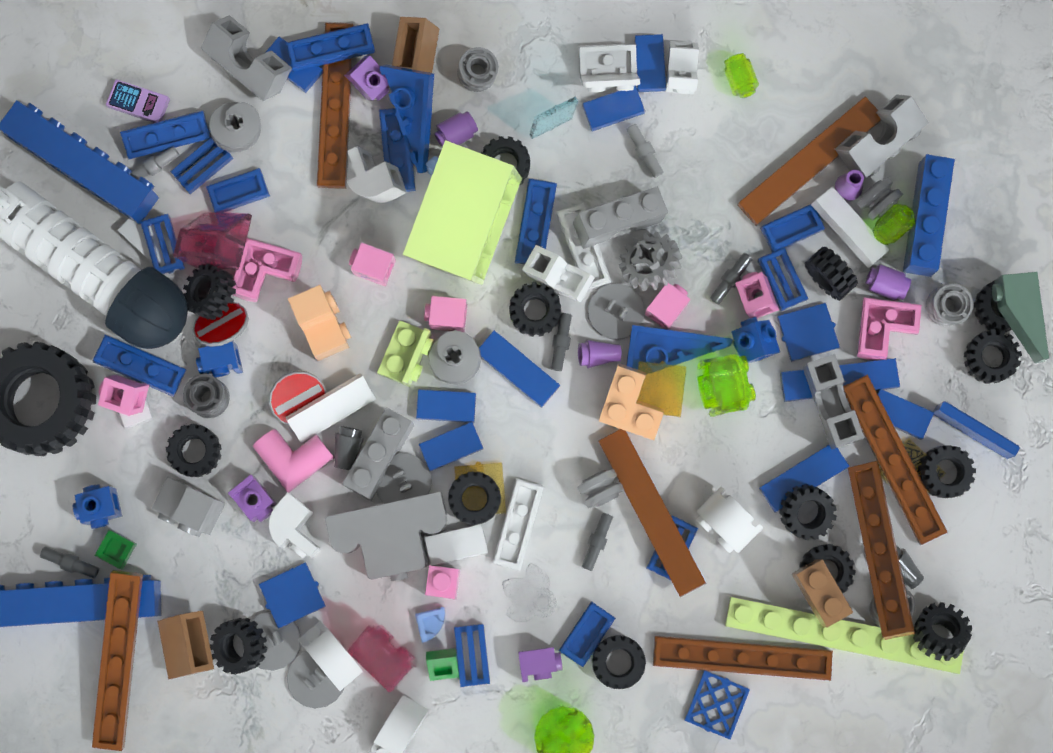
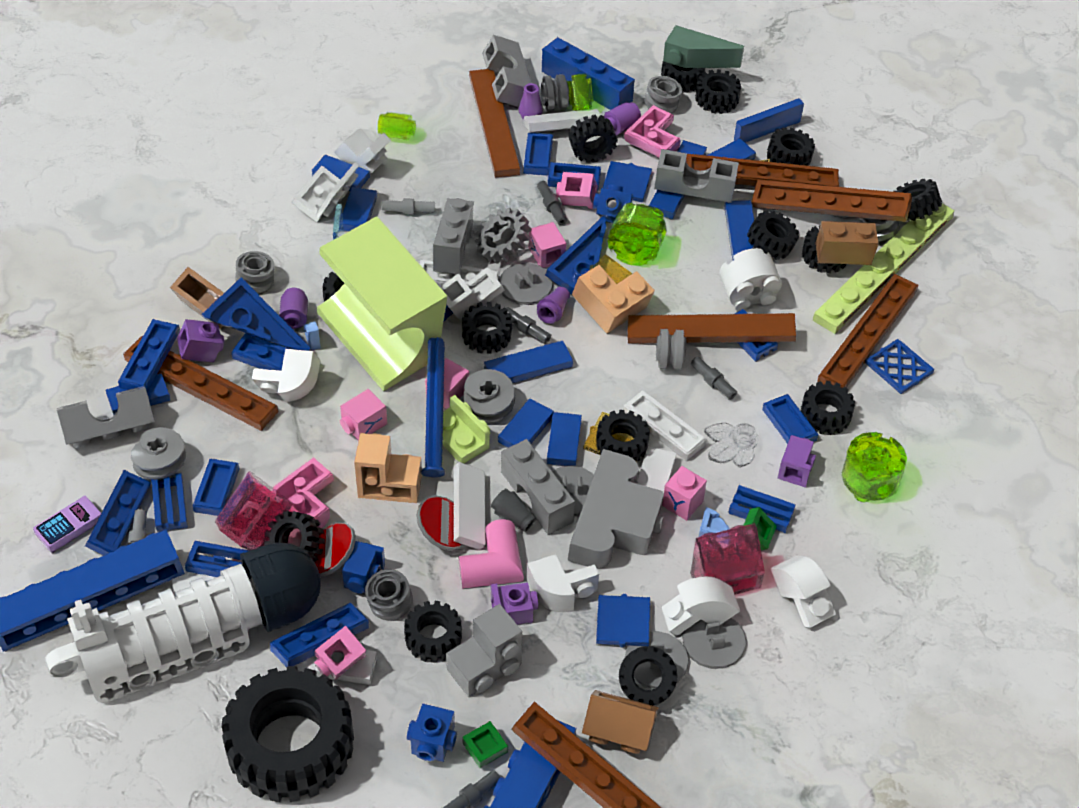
camera: 65 degrees left, 30 degrees down
(405, 322) = (434, 409): none -> blue axle

